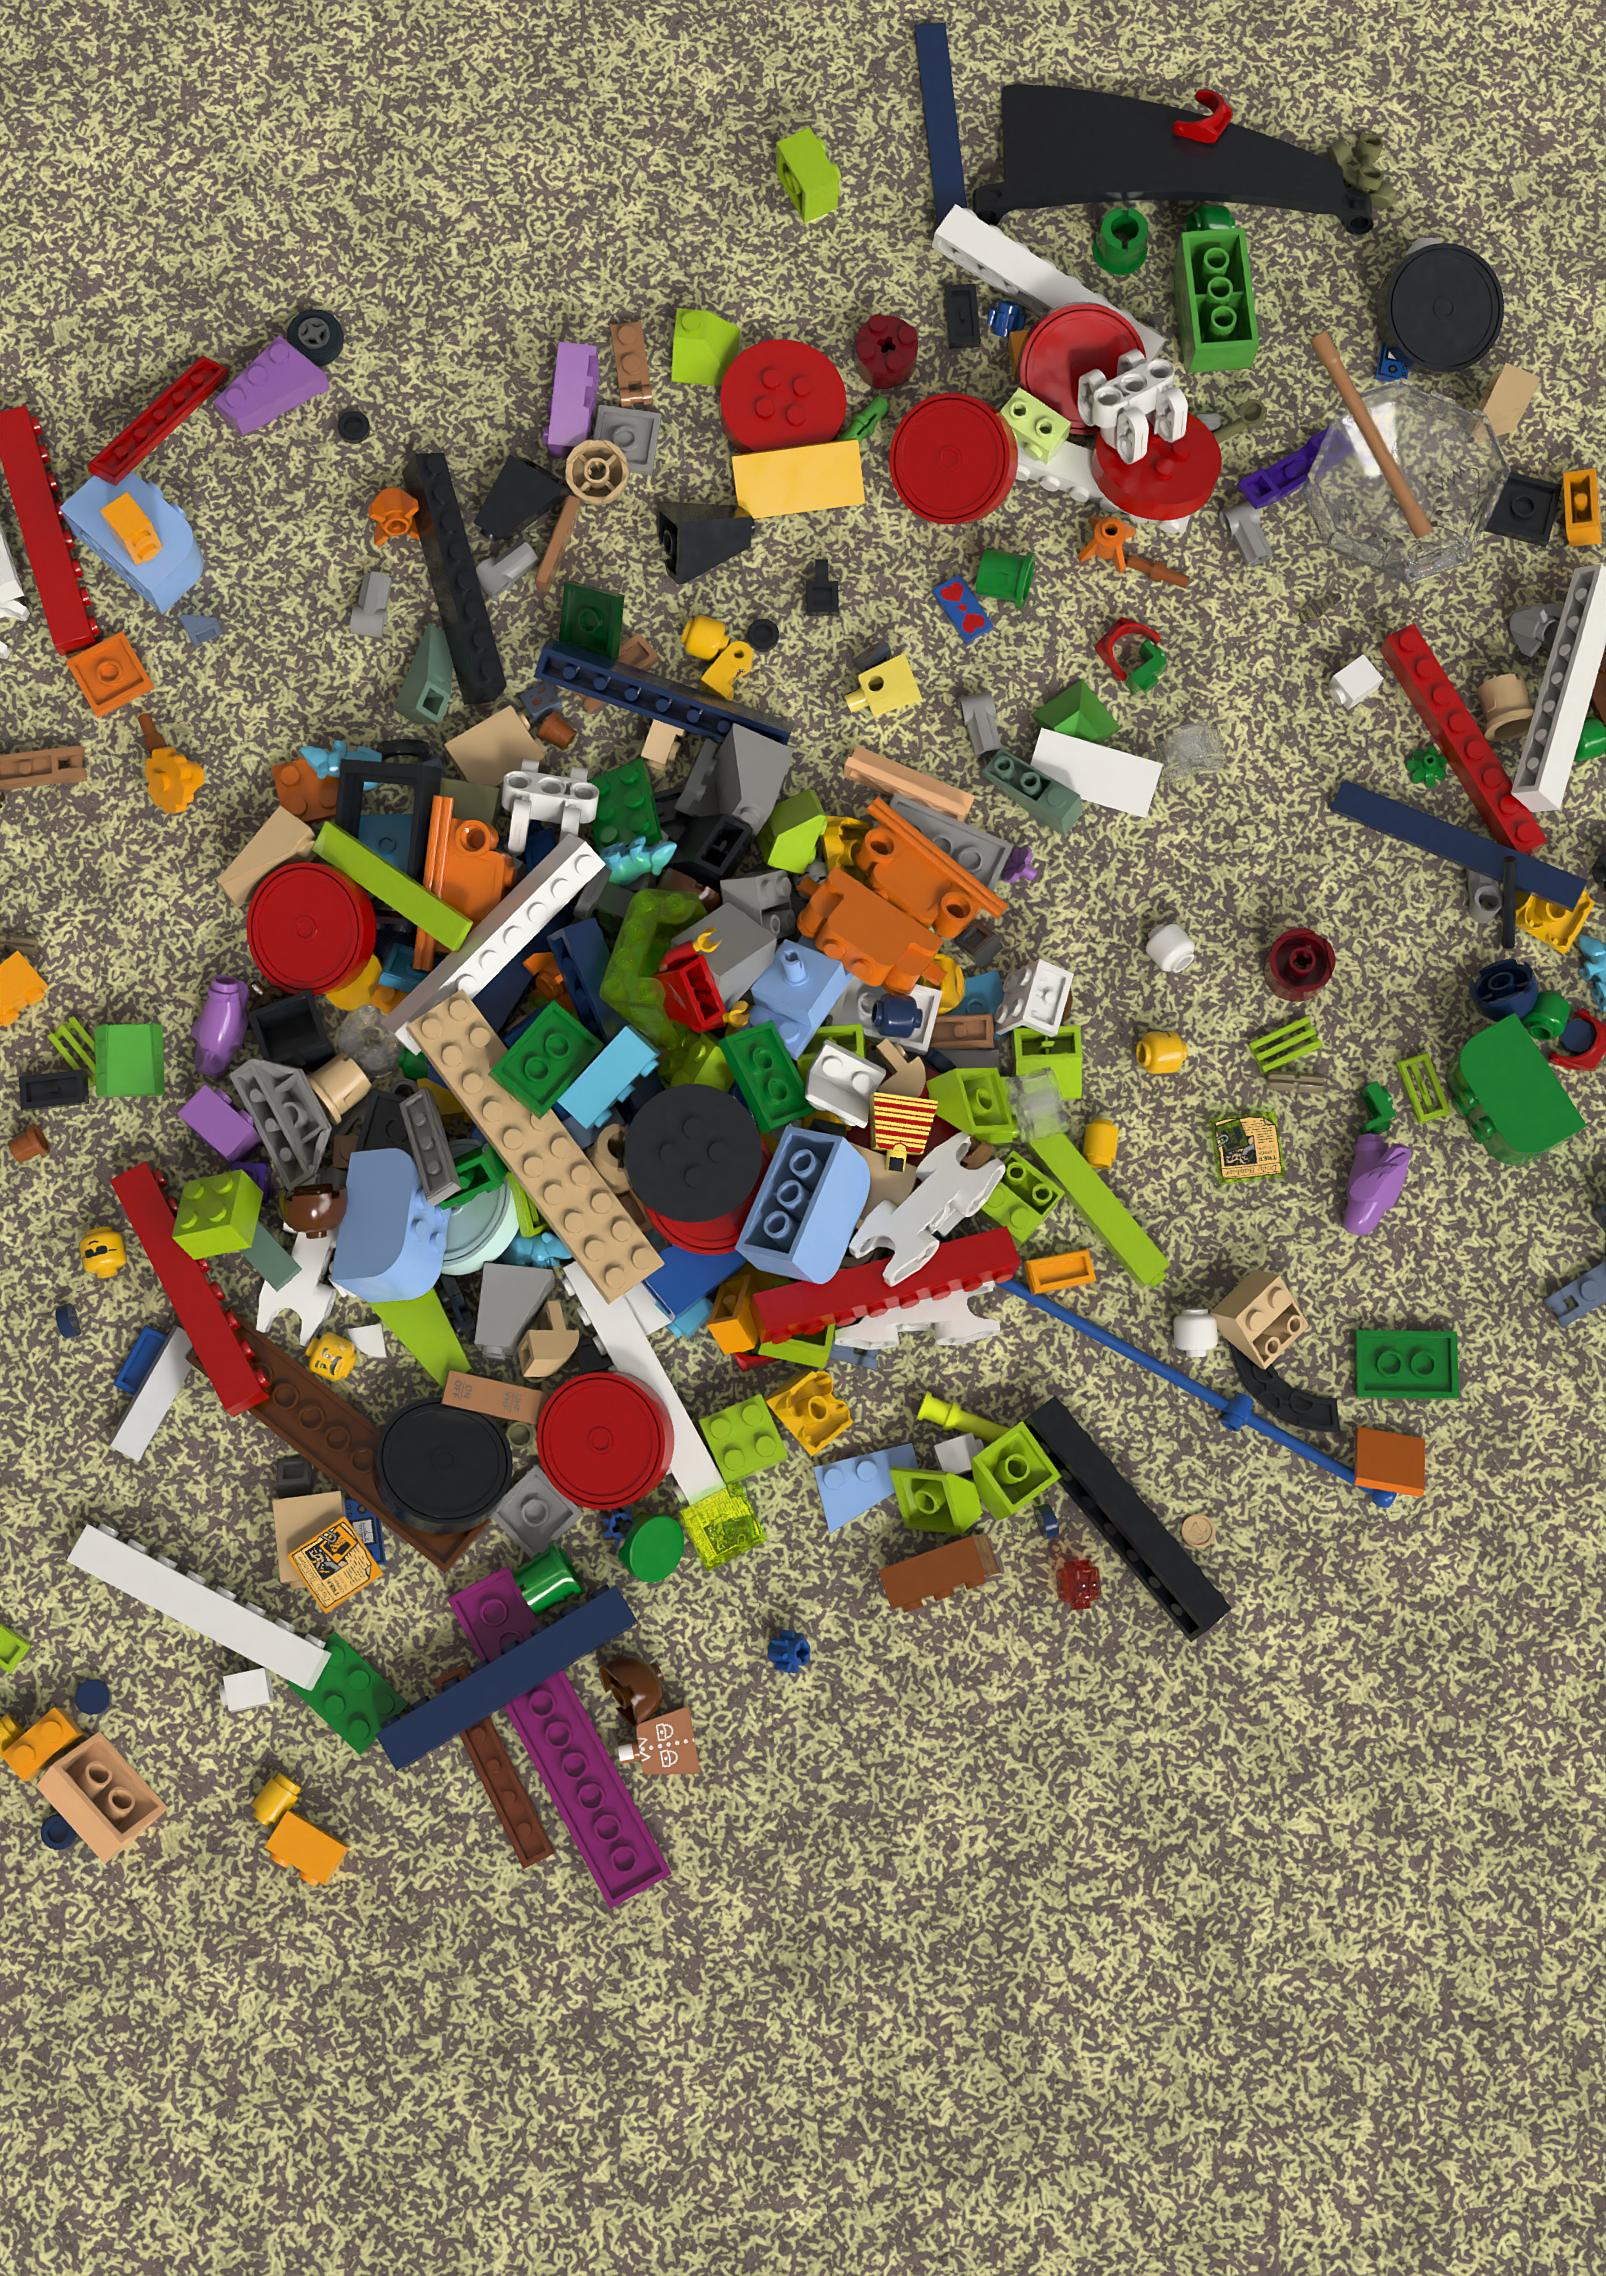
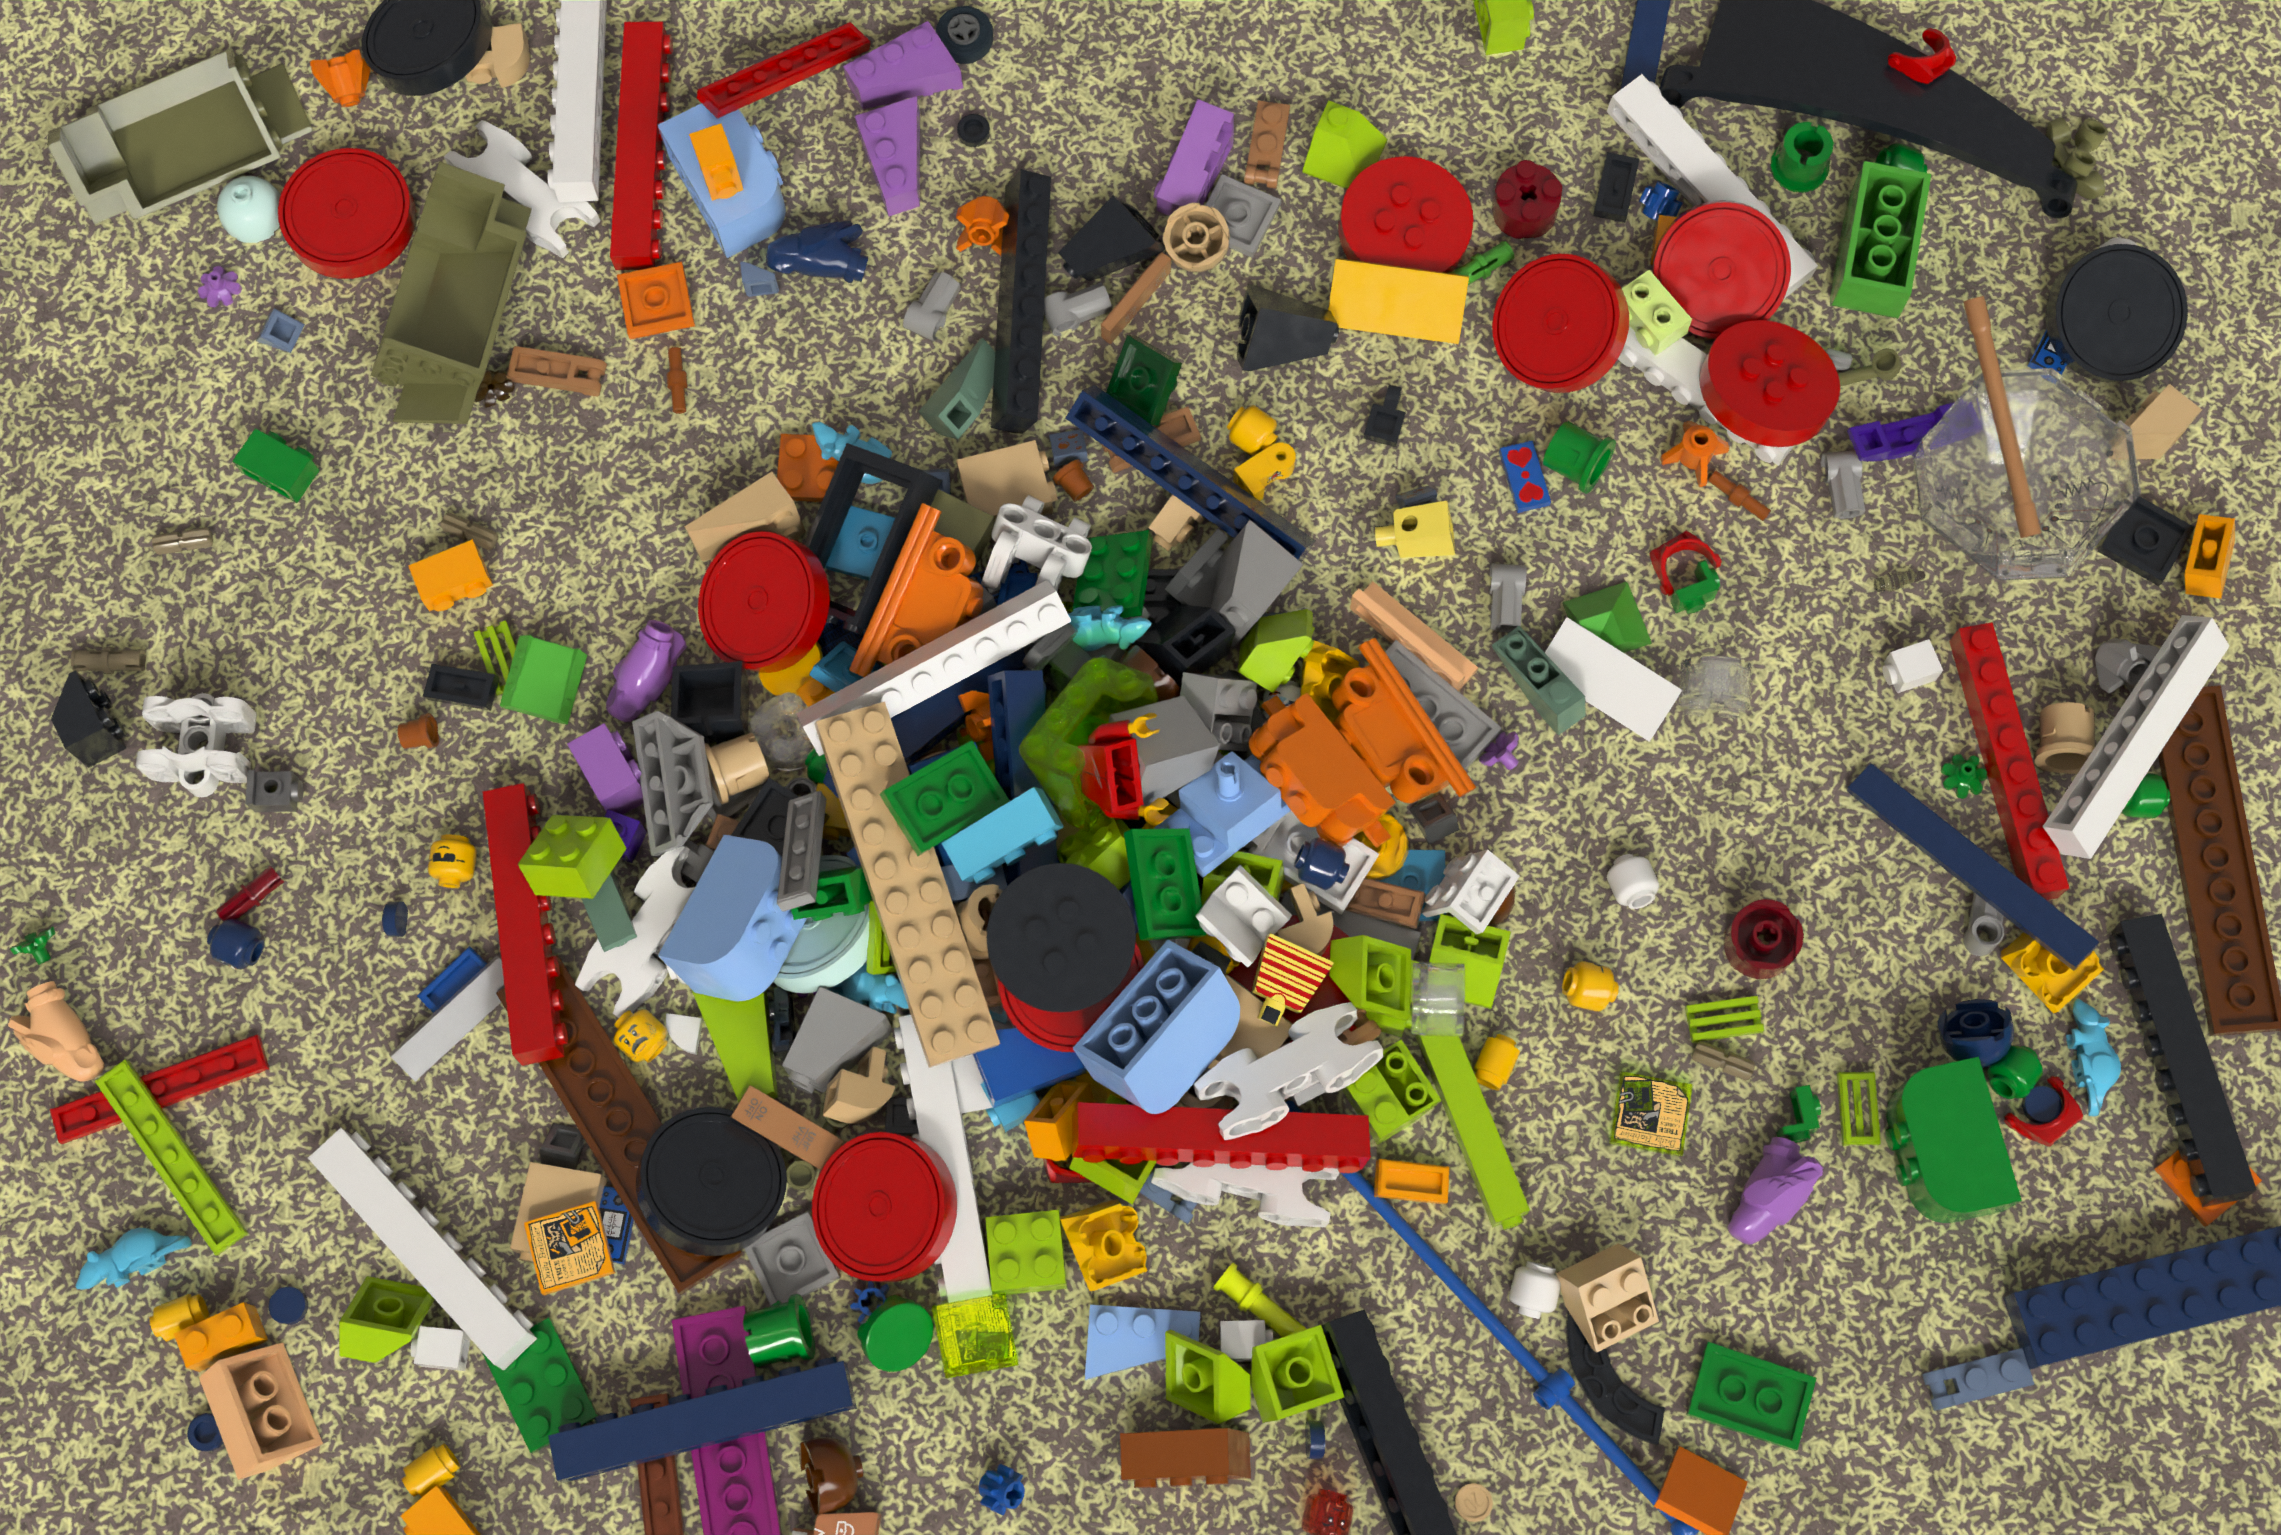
camera: 25 degrees right, 5 degrees down
(172, 779) = (680, 418): light orange plant -> none
(185, 1681) = (381, 1318): none -> lime slope
(250, 585) = (820, 252): none -> dark blue animal
(263, 995) = (696, 654): dark brown plant -> none
(285, 469) = (893, 151): none -> medium lavender wedge
(313, 1208) = (667, 879): reddish brown cylinder -> none
(392, 886) = (854, 582): lime tile -> none
(403, 747) = (917, 453): black piece -> none
(763, 635) = (1313, 445): black tile -> none
(939, 1061) = (1353, 923): dark blue tile -> none
(1126, 401) = (1752, 310): white piece -> none
(1509, 902) = (2008, 940): black bar -> none

